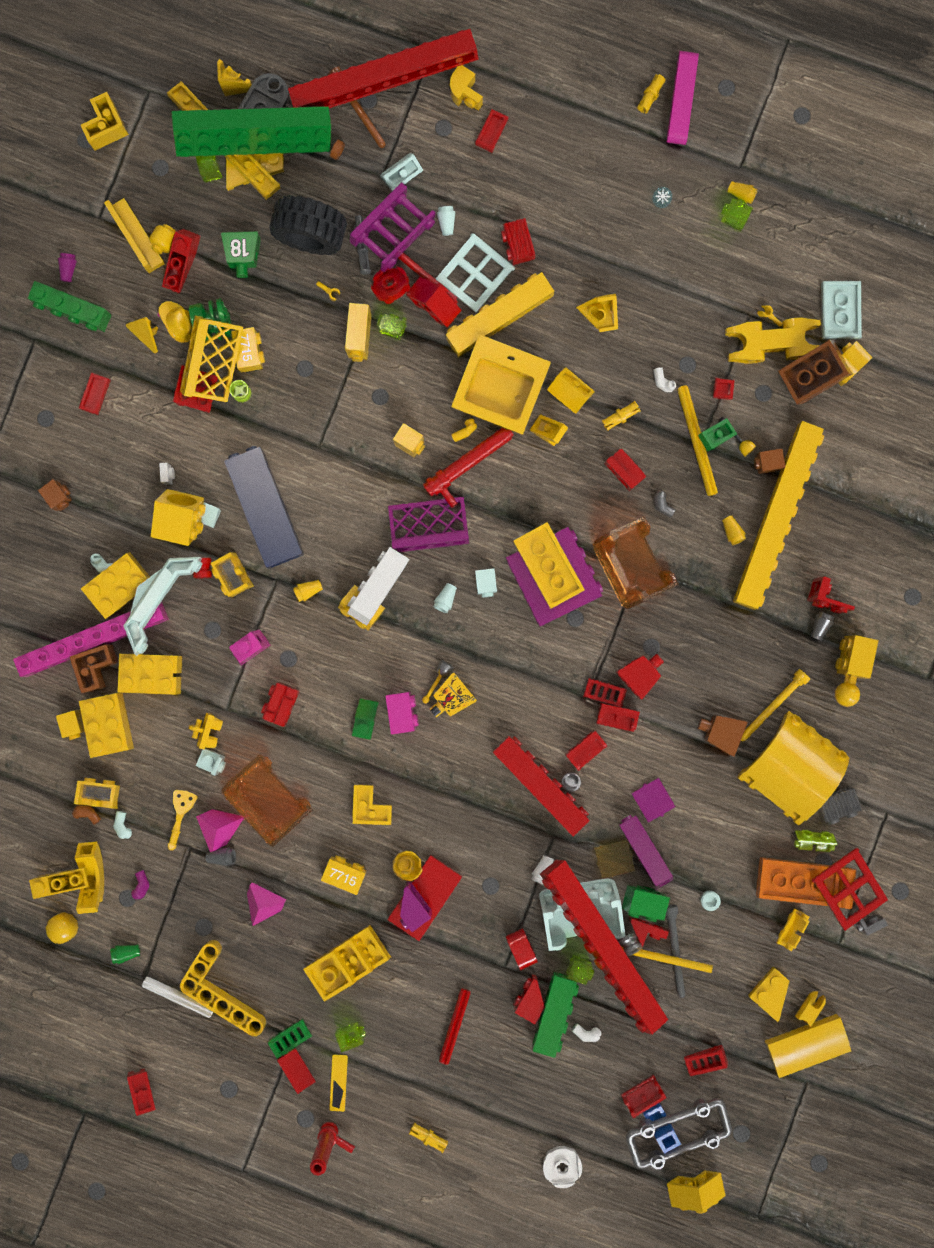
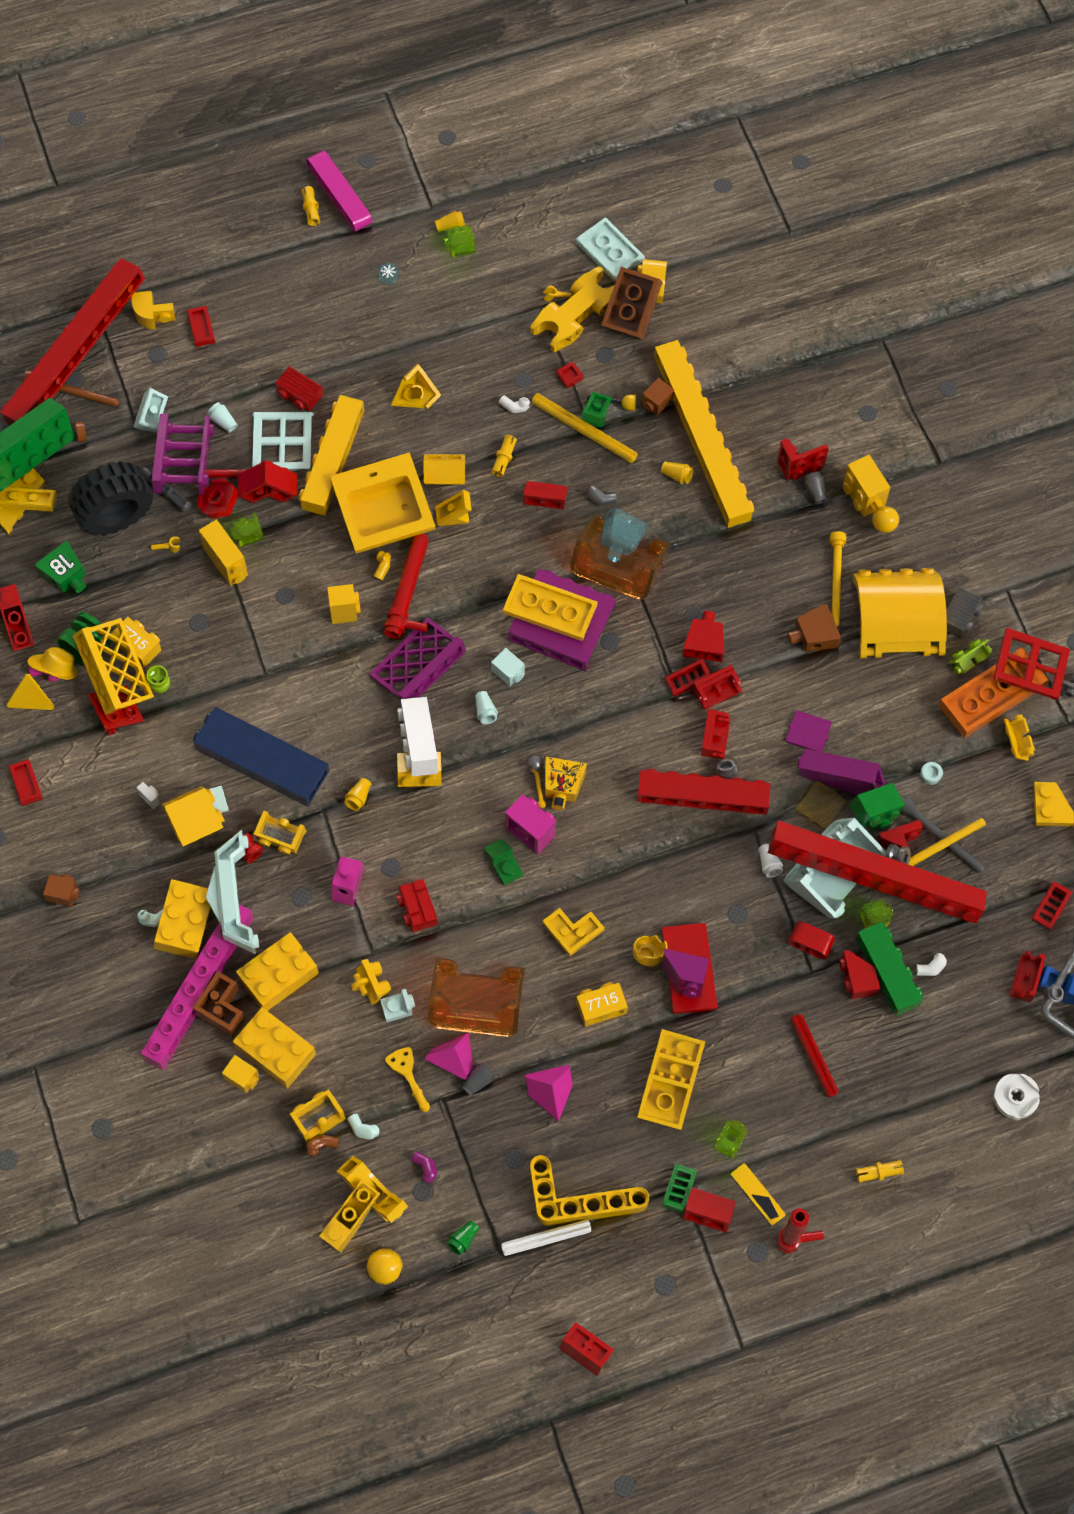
camera: 50 degrees left, 20 degrees down
(649, 549) = (621, 533): none -> clear light blue torso

